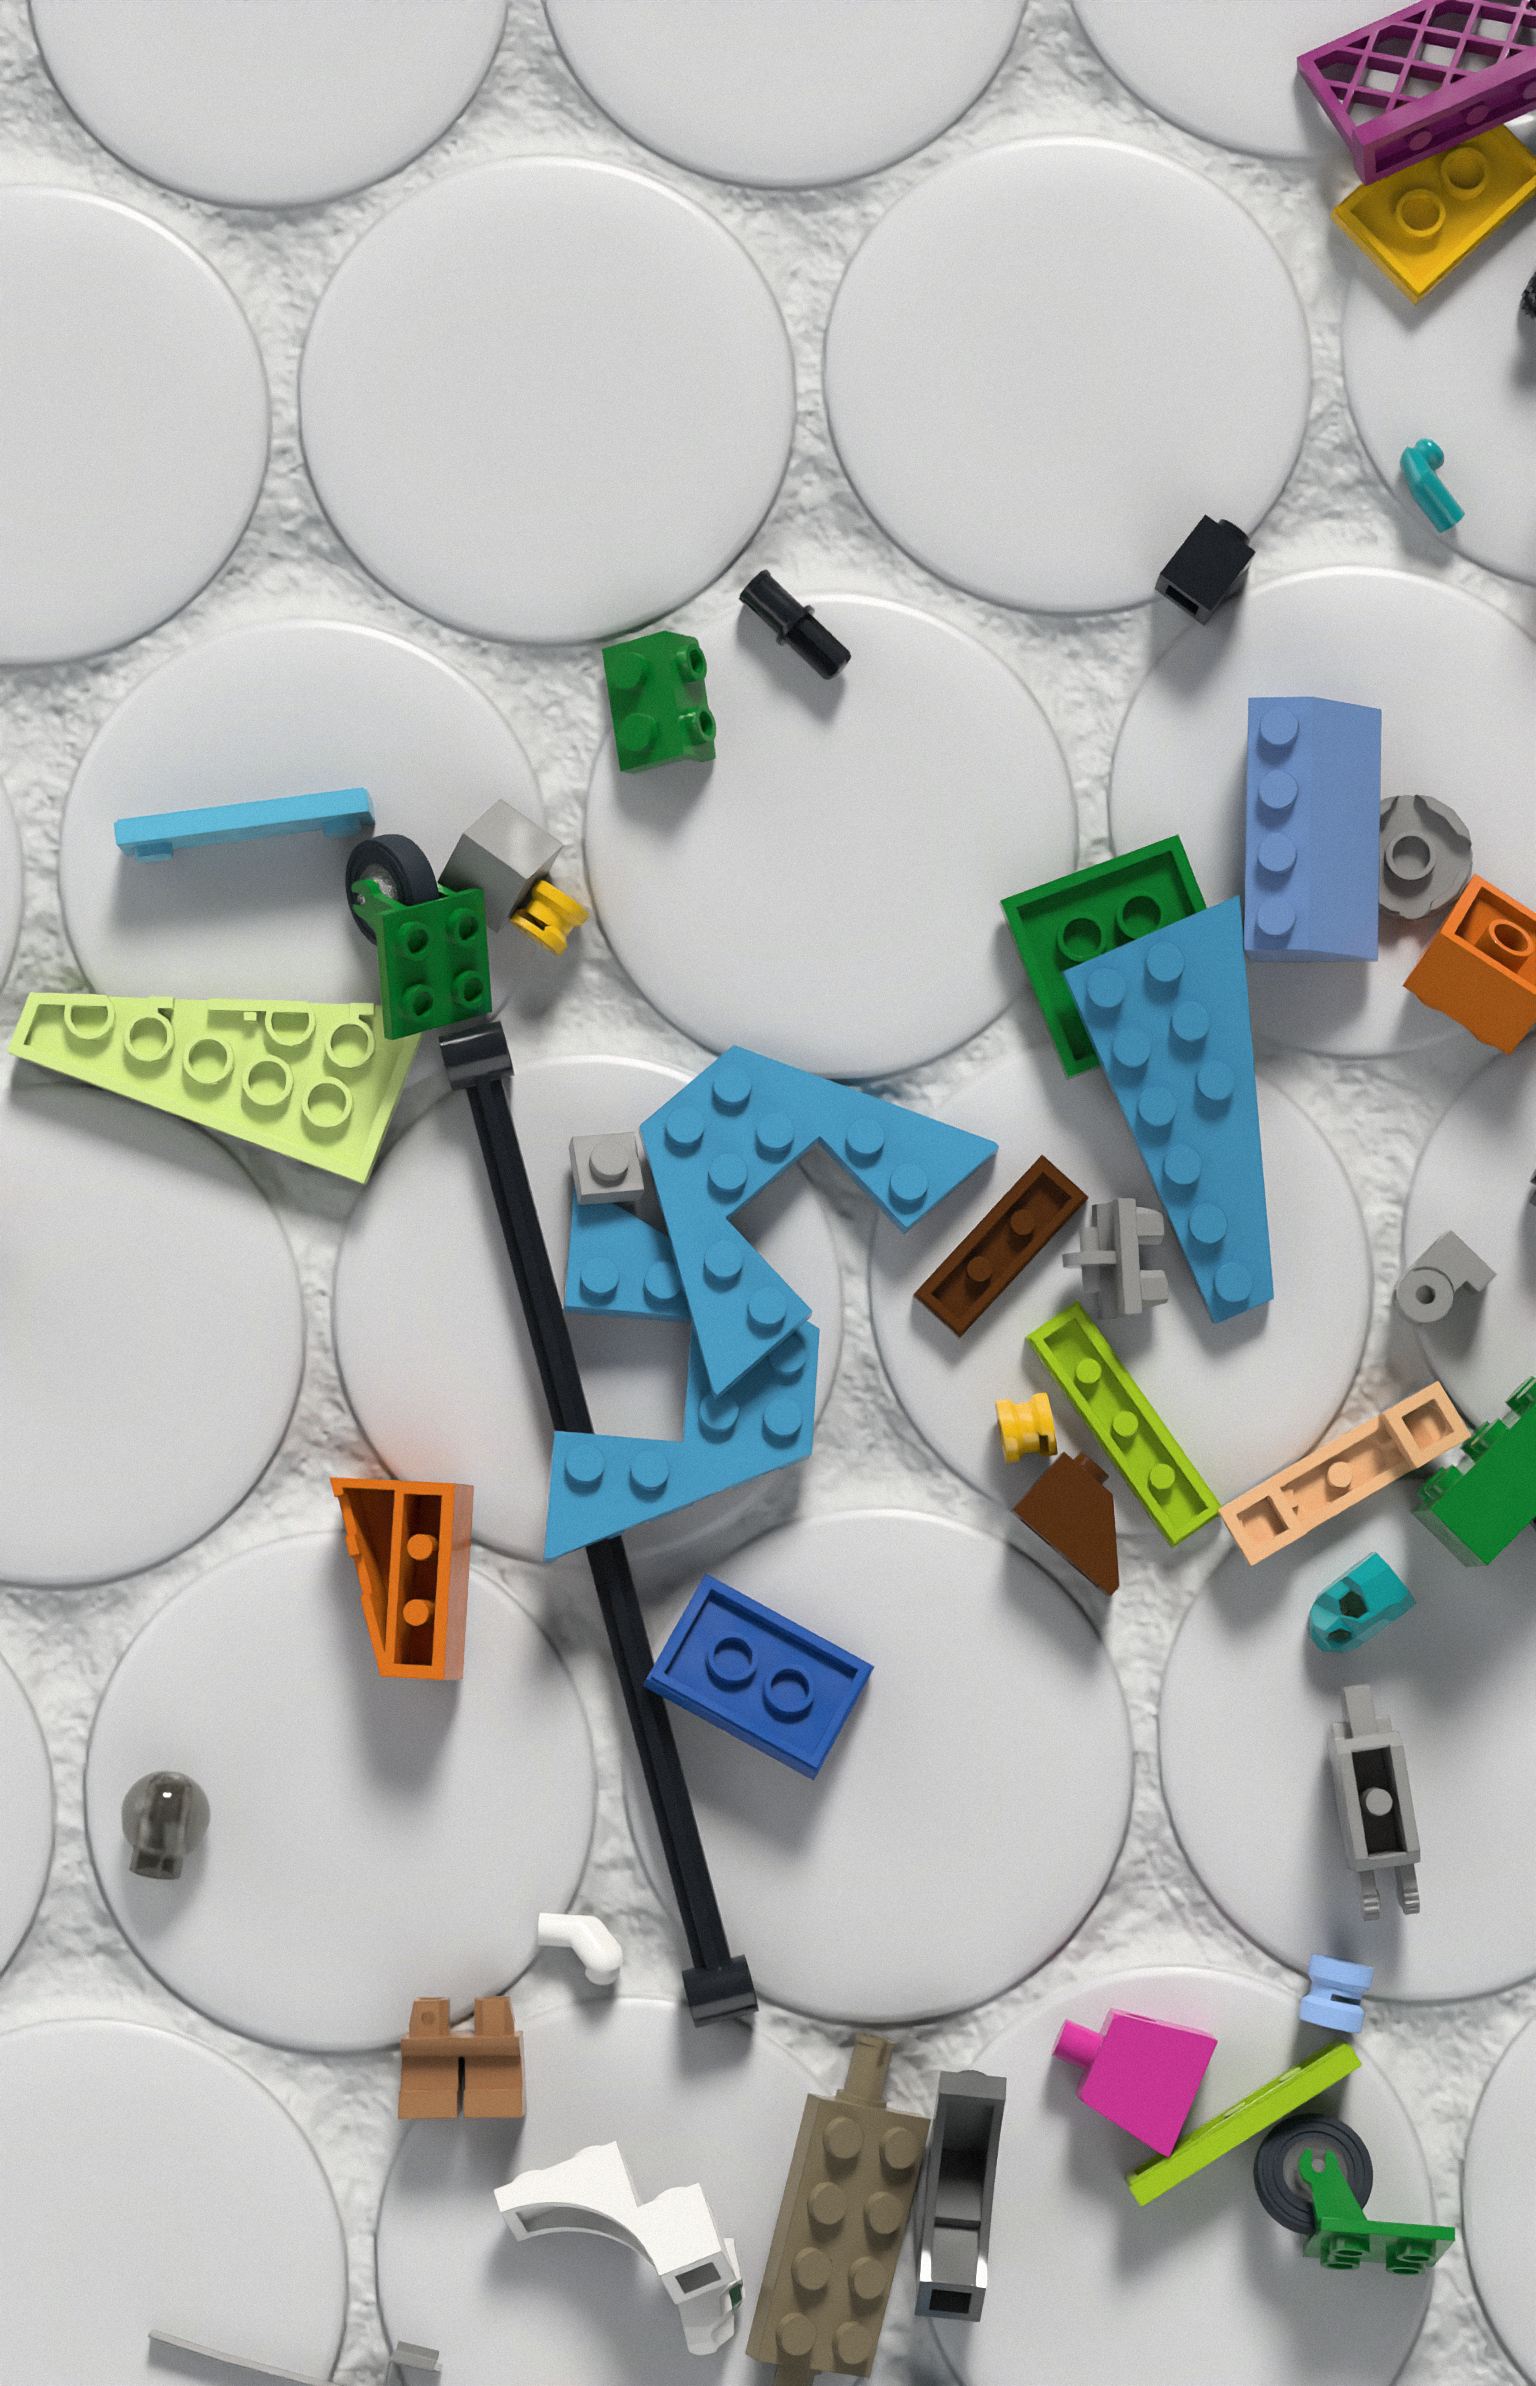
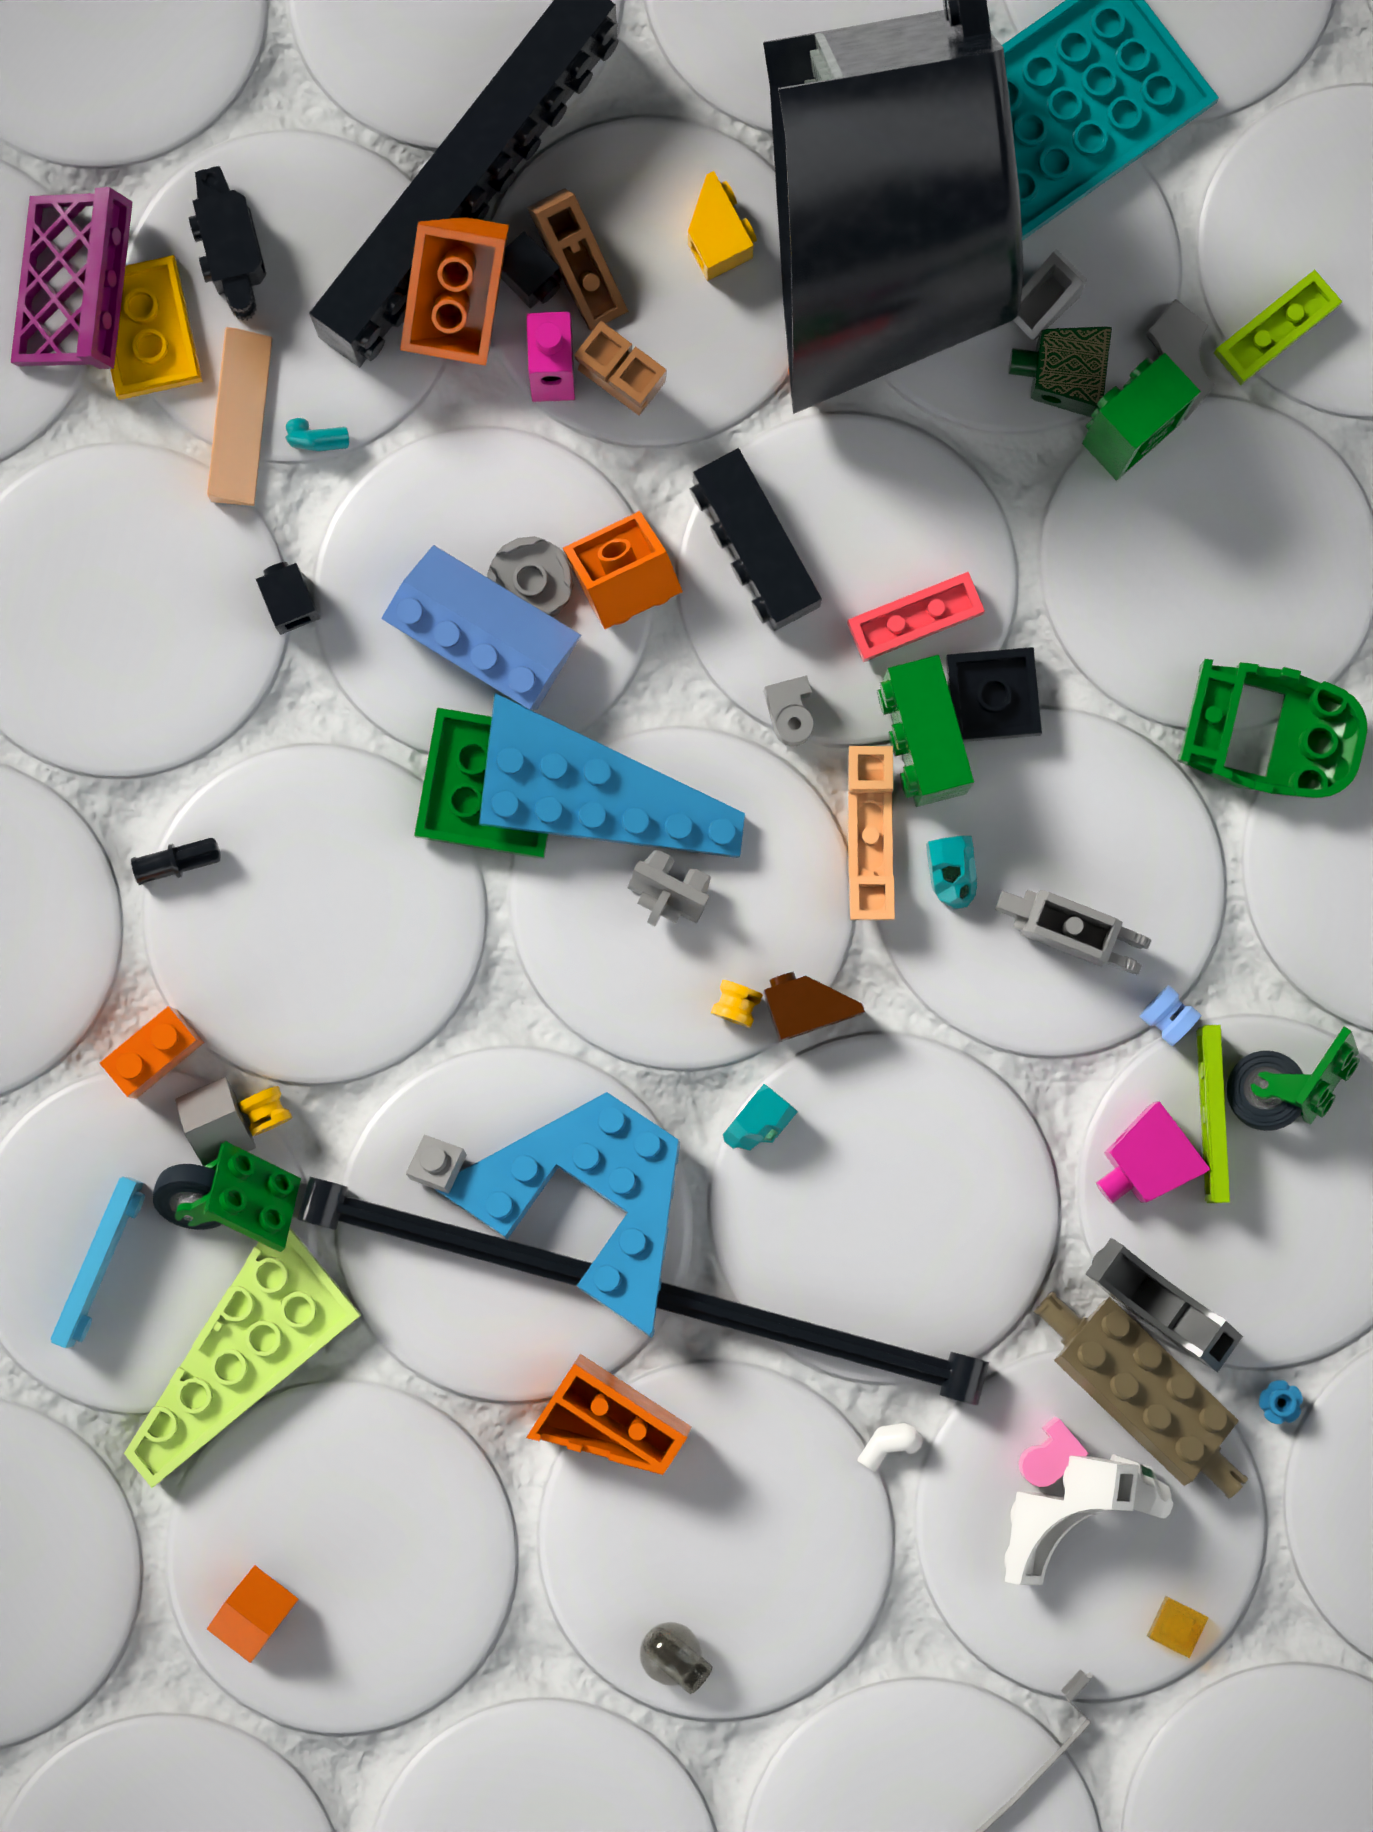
camera: 65 degrees left, 0 degrees up
(434, 2062) = (907, 1573): medium nougat hips -> none
(540, 736) = (151, 1052): none -> orange brick
(659, 701) = (173, 969): green bracket -> none
(675, 2159) = (1047, 1462): none -> bright pink leg
(737, 1135) = (463, 1077): dark azure wing -> none
(759, 1676) = (792, 1247): blue tile -> none
(895, 1542) = (759, 1120): none -> teal rock
(1000, 1246) = (620, 956): reddish brown tile -> none
(1124, 1424) = (767, 944): lime tile -> none
(1397, 376) = (239, 417): none -> light nougat slope

